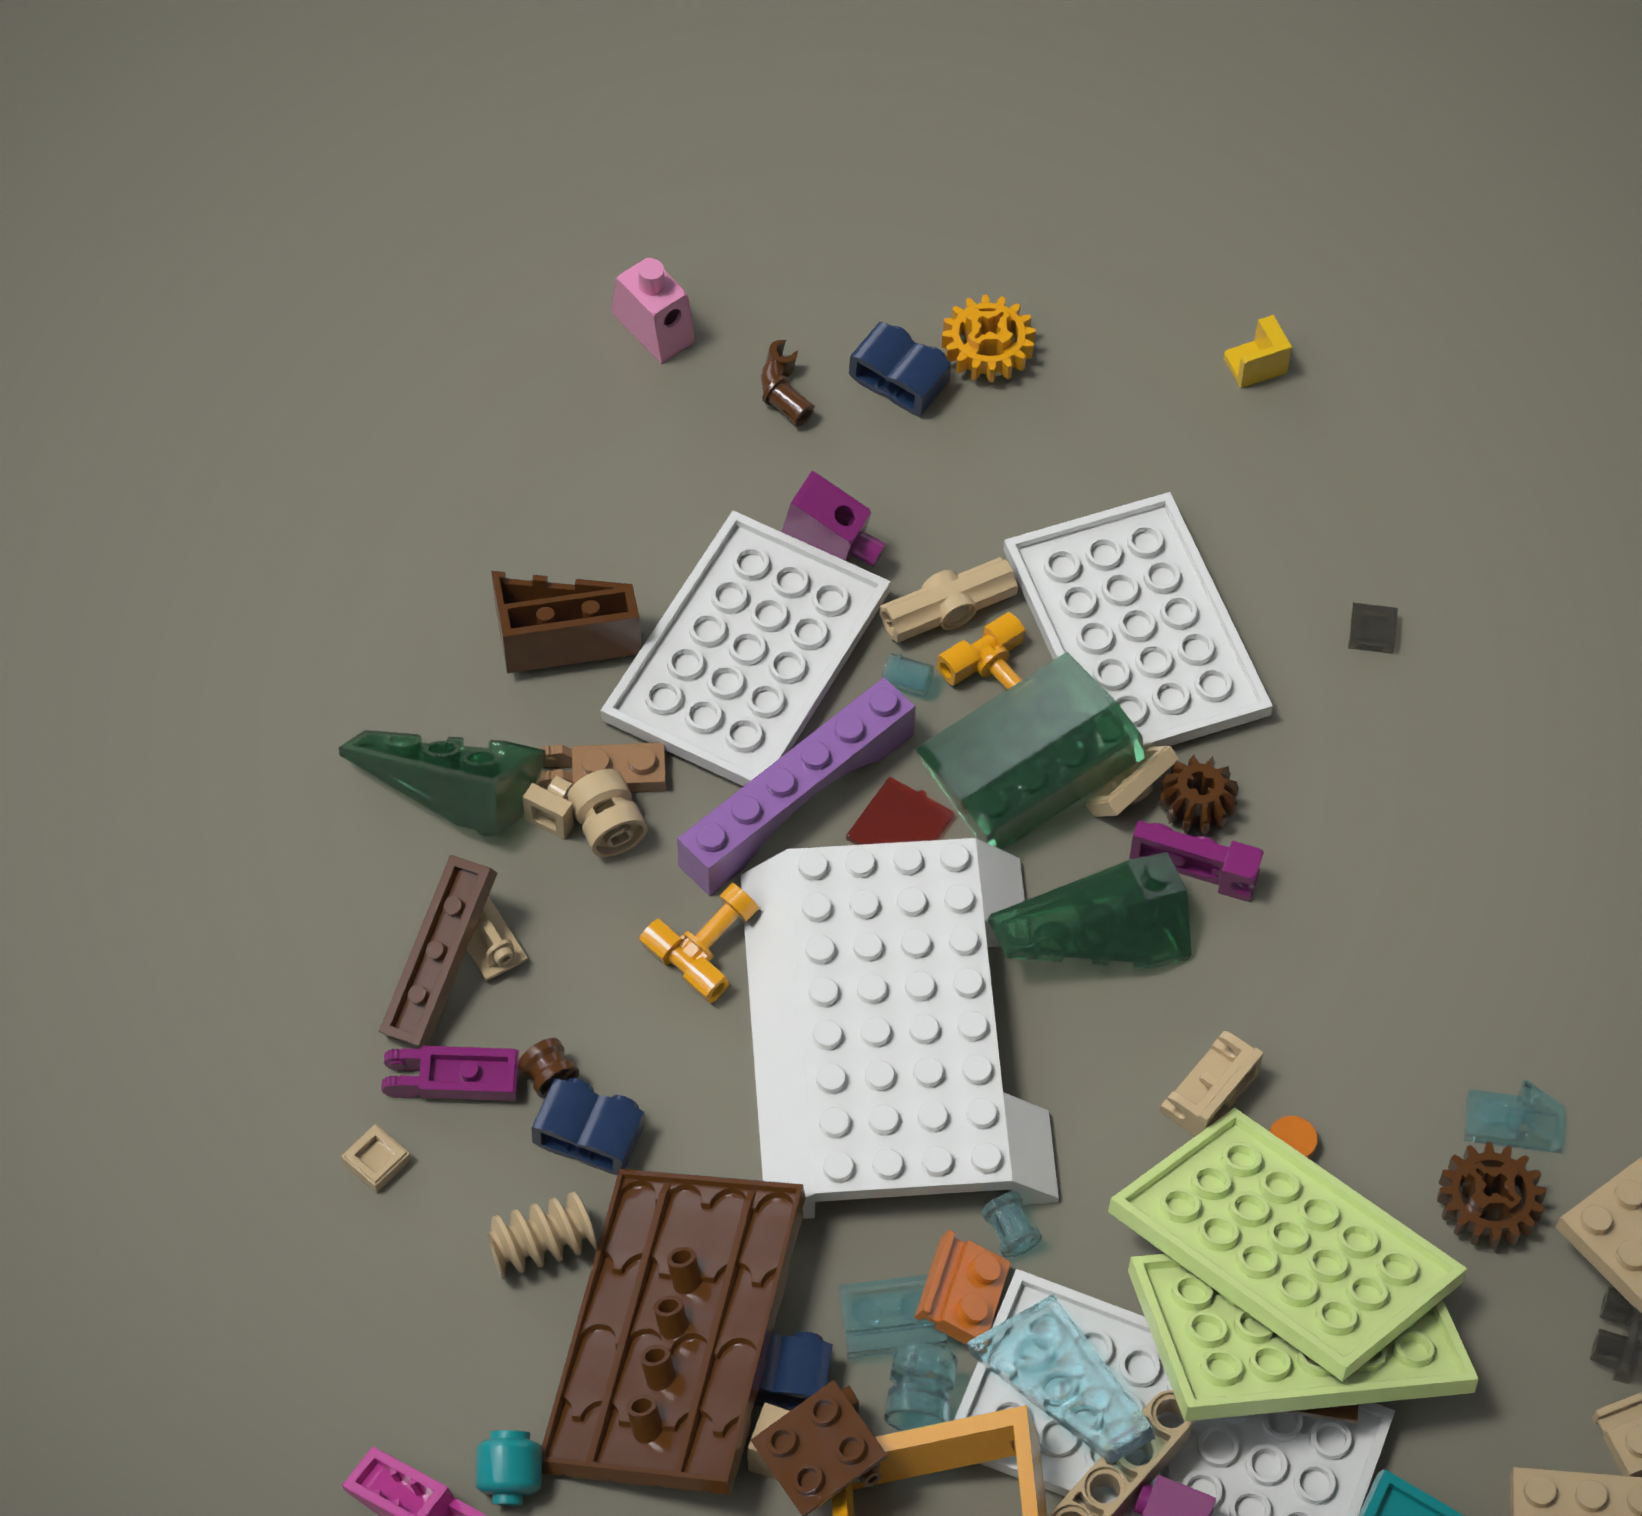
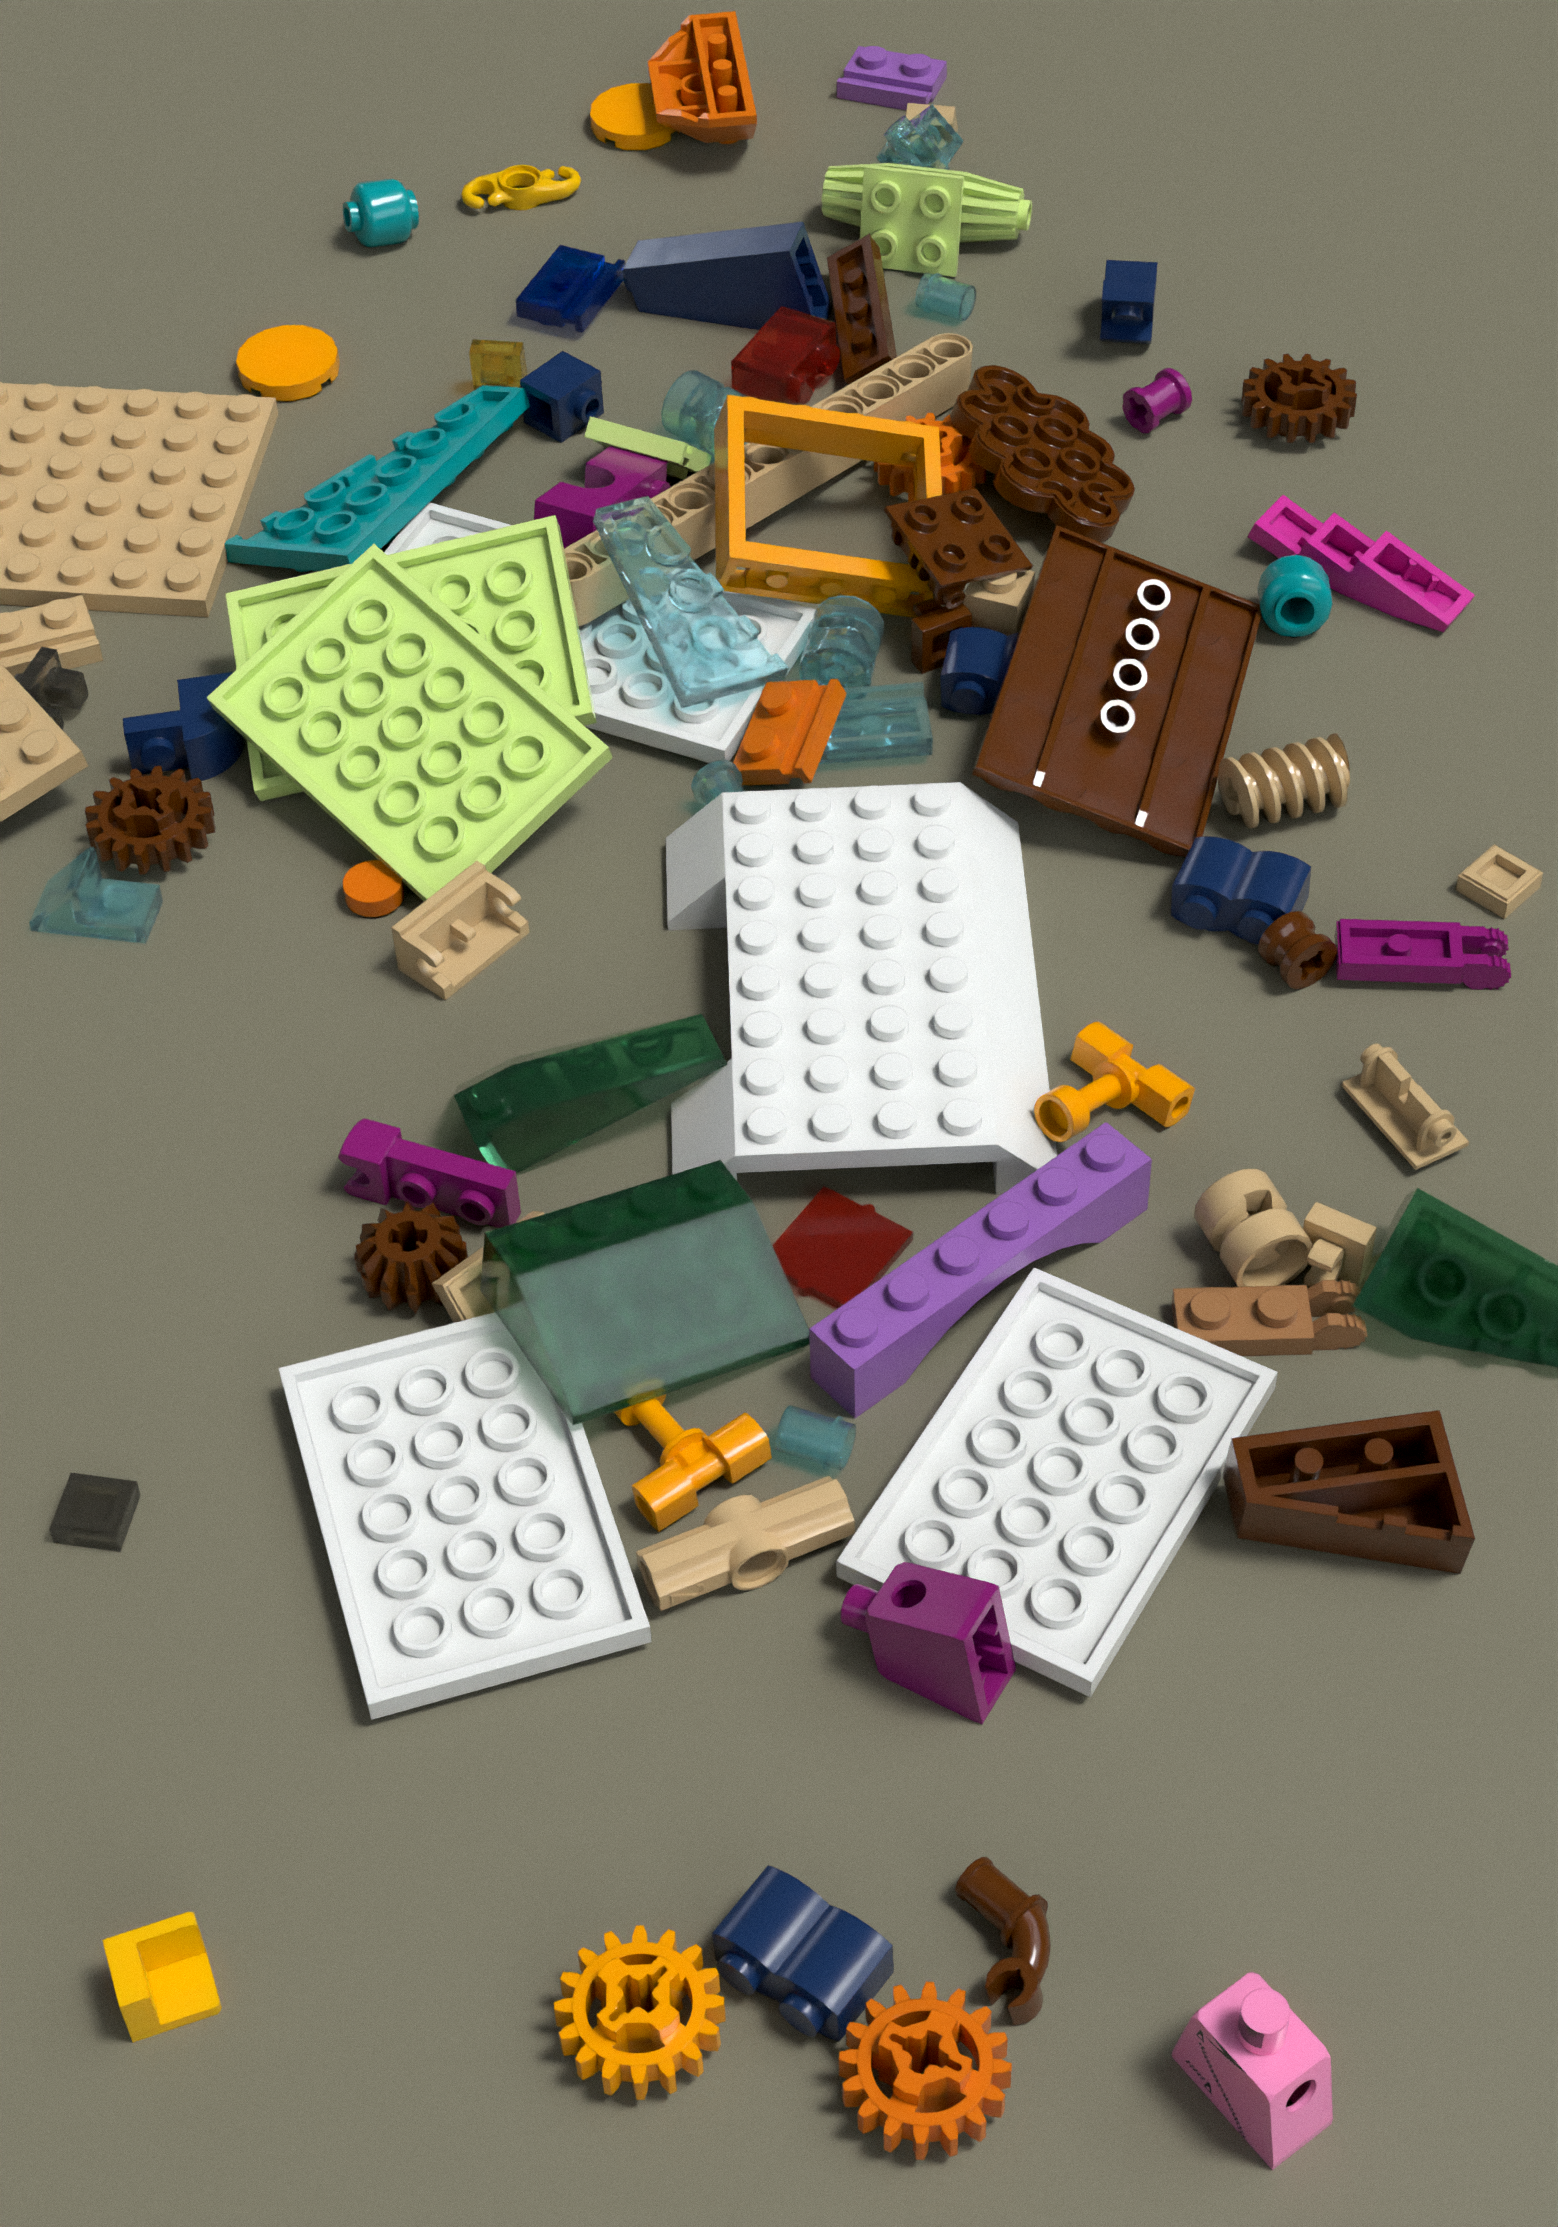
camera: 175 degrees left, 10 degrees down
(438, 952) = (1460, 1048): reddish brown plate -> none
(830, 313) = (949, 2092): none -> orange gear
(1476, 1300) = (187, 737): none -> dark blue brick

